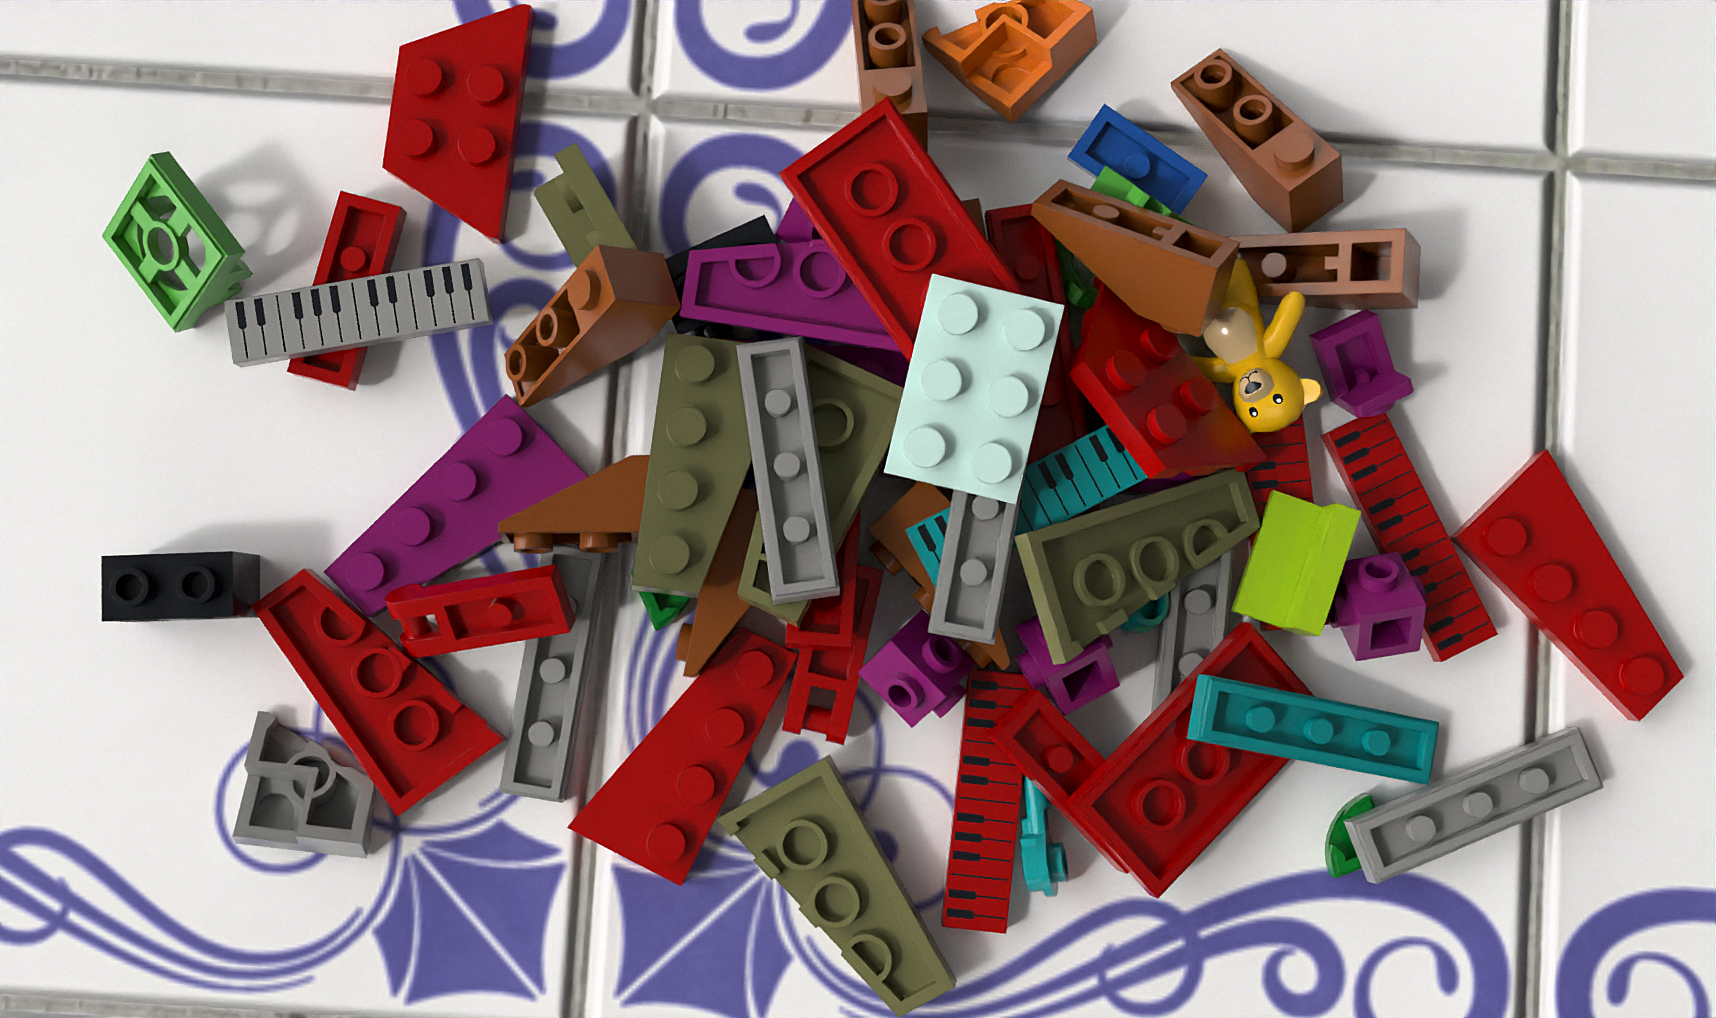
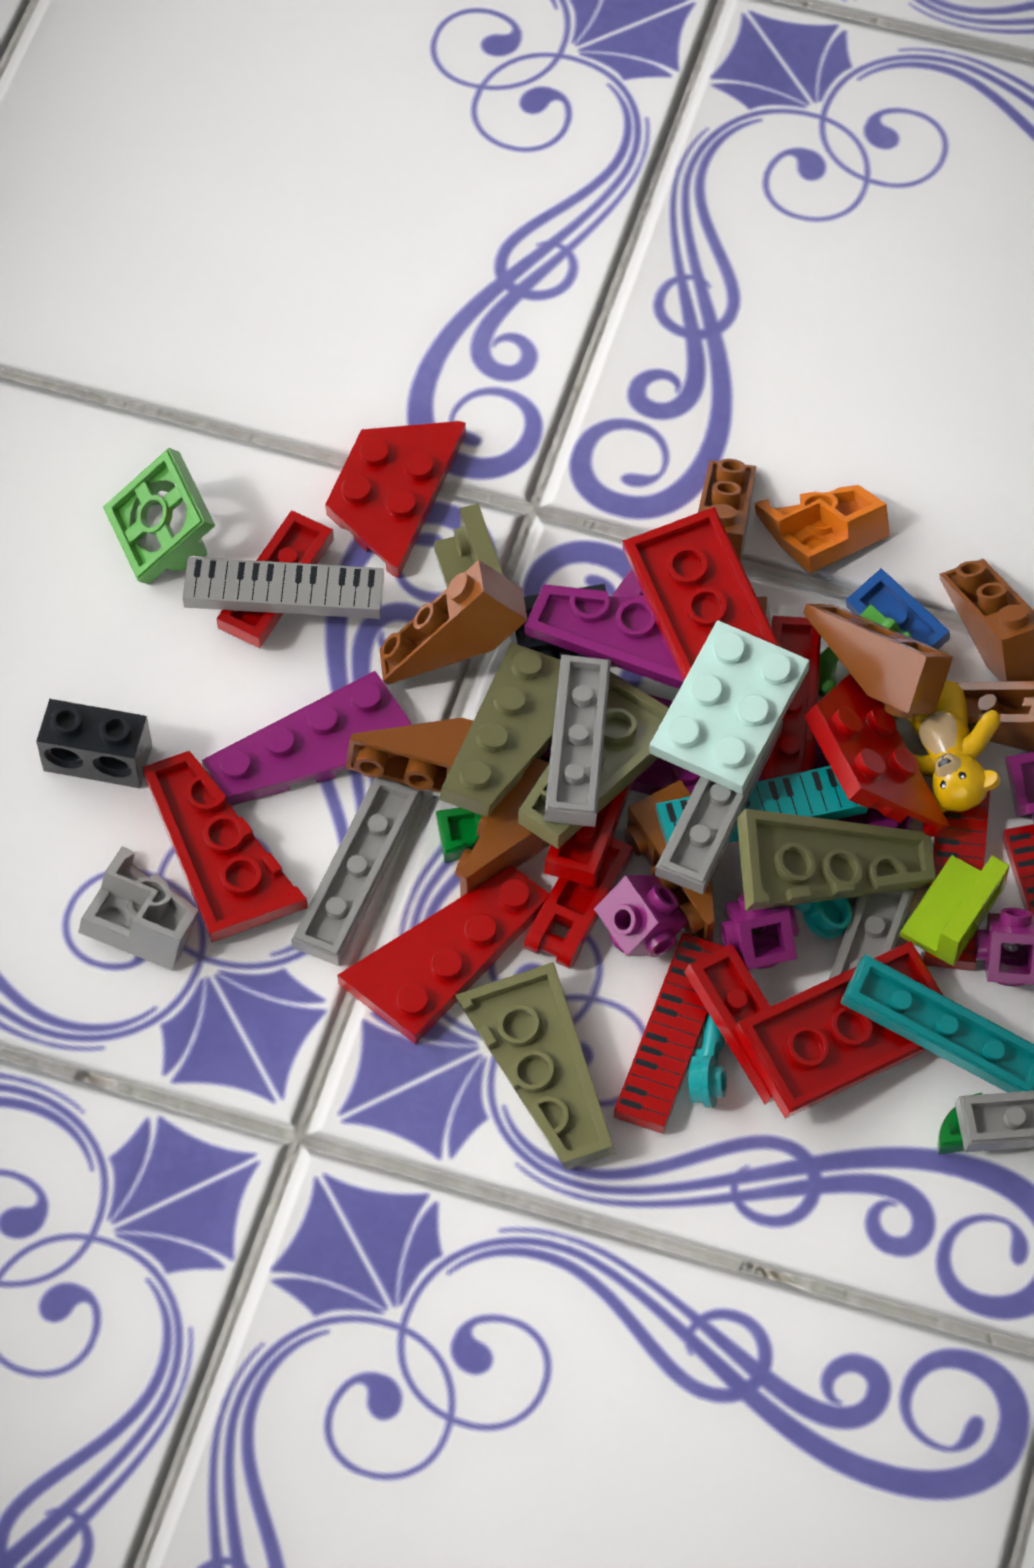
camera: 15 degrees right, 25 degrees down
(481, 611) = (318, 803): red plate -> none

